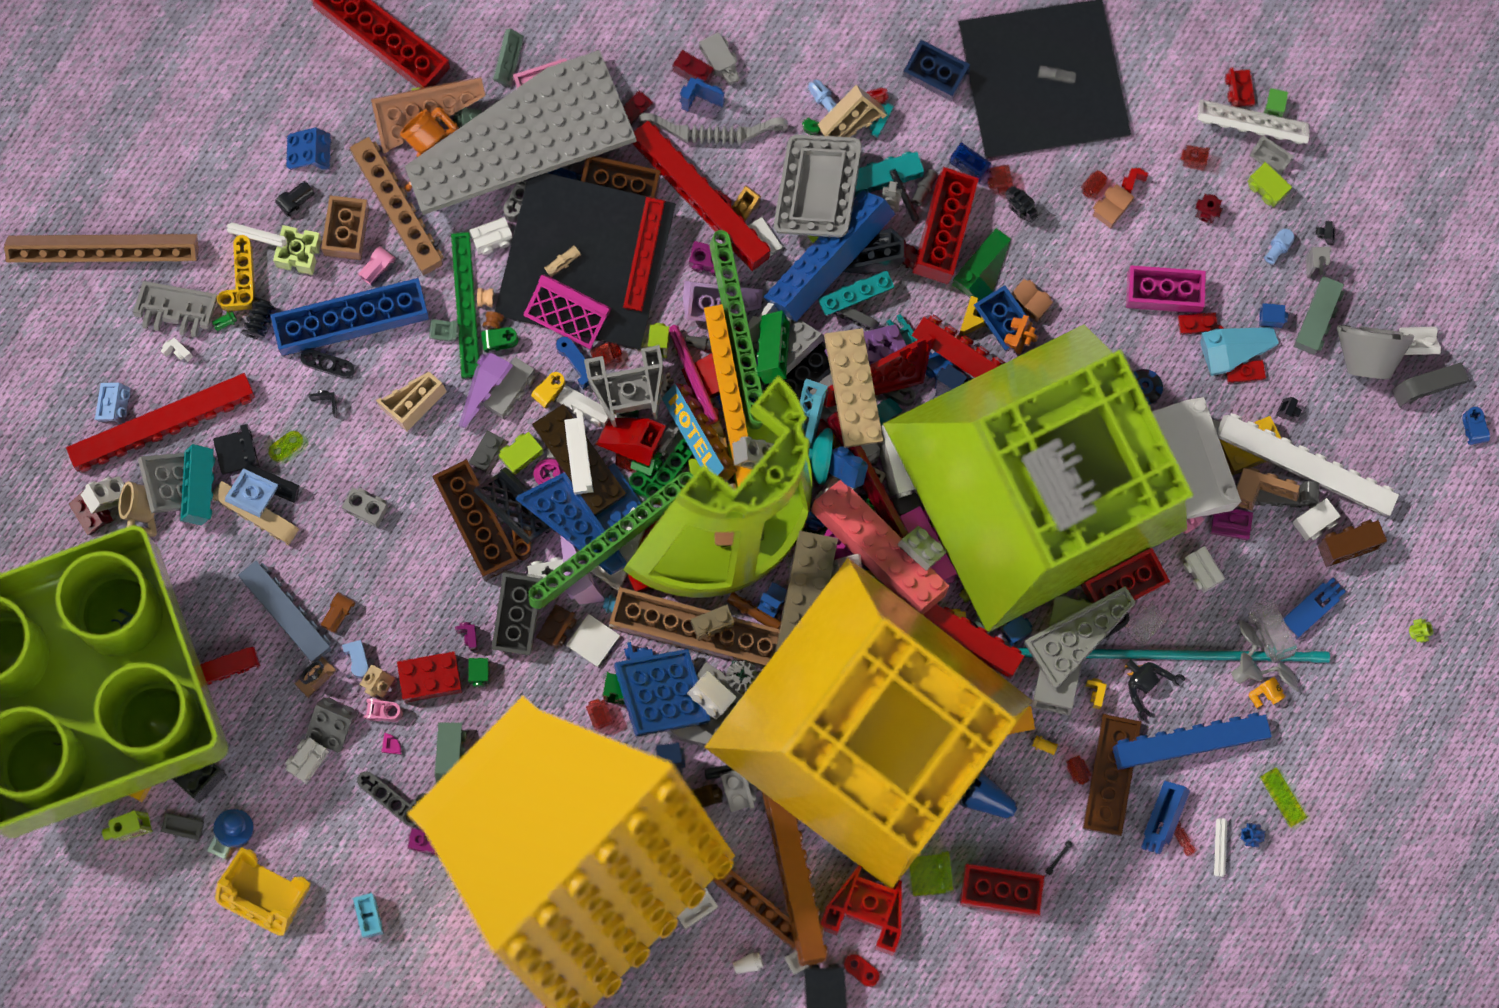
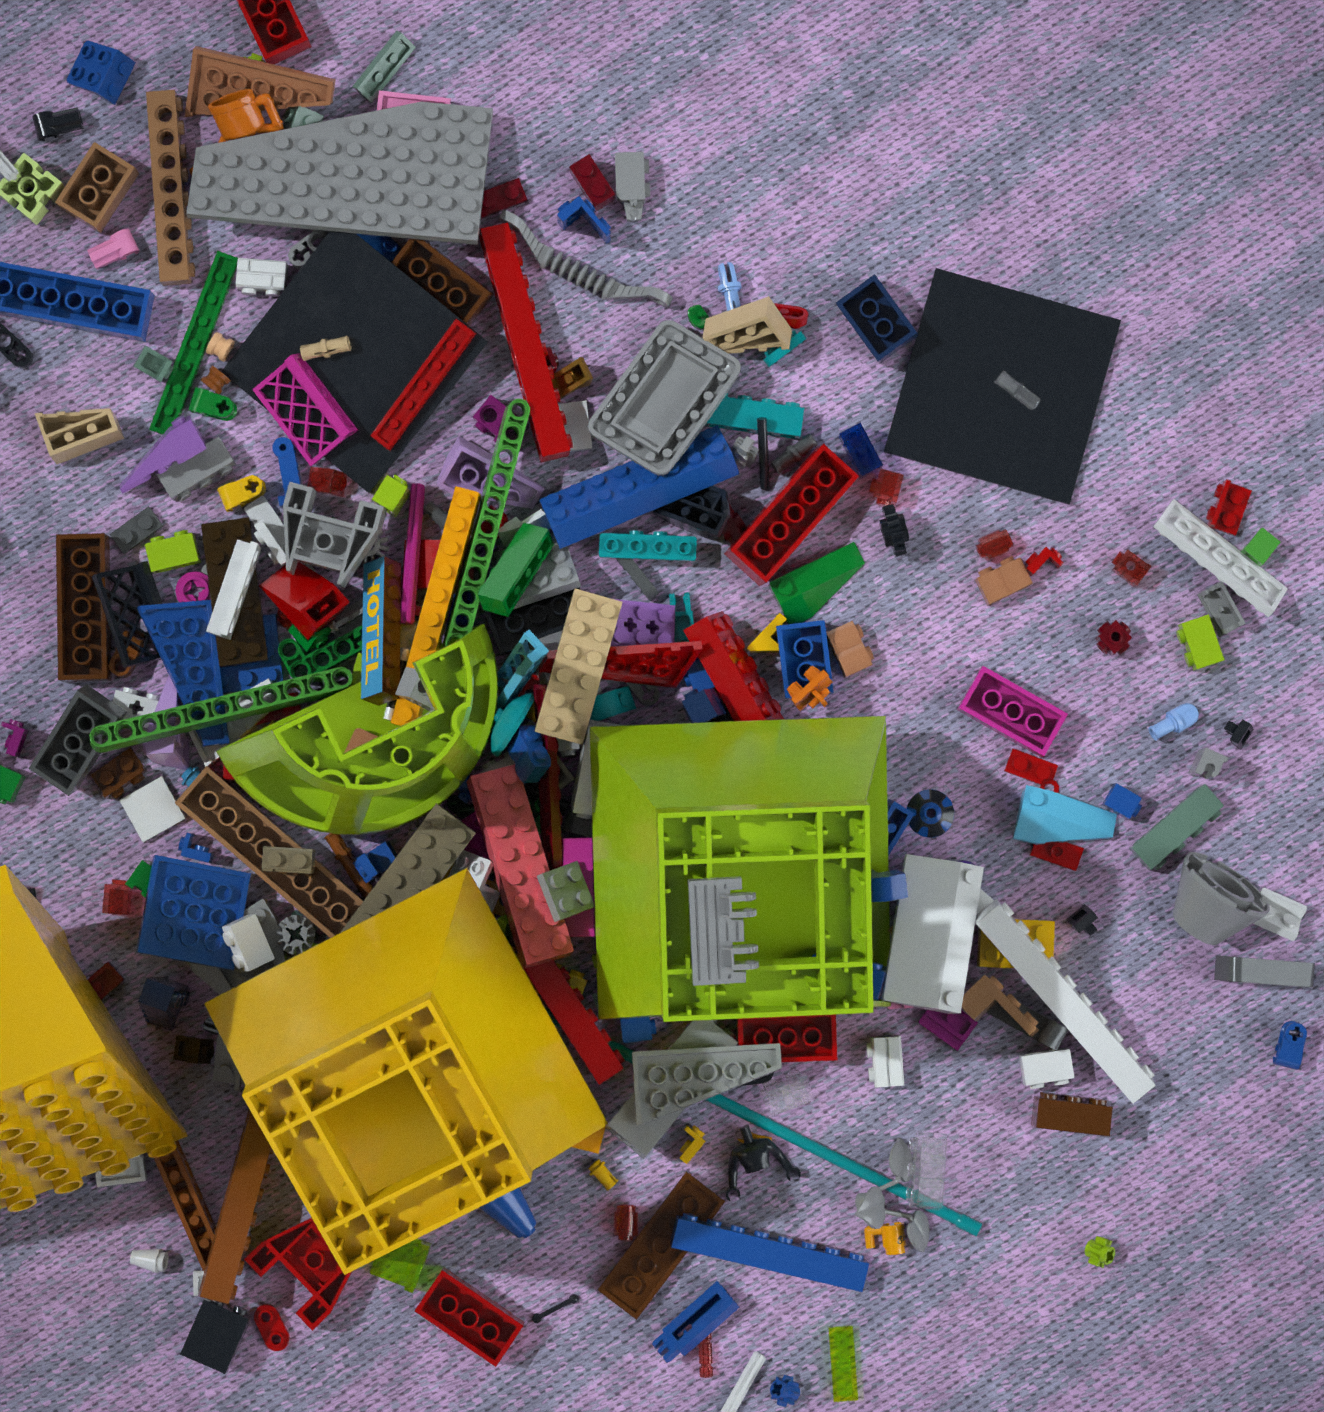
camera: 30 degrees right, 10 degrees up
(1309, 611) = (983, 1168): blue hinge -> none

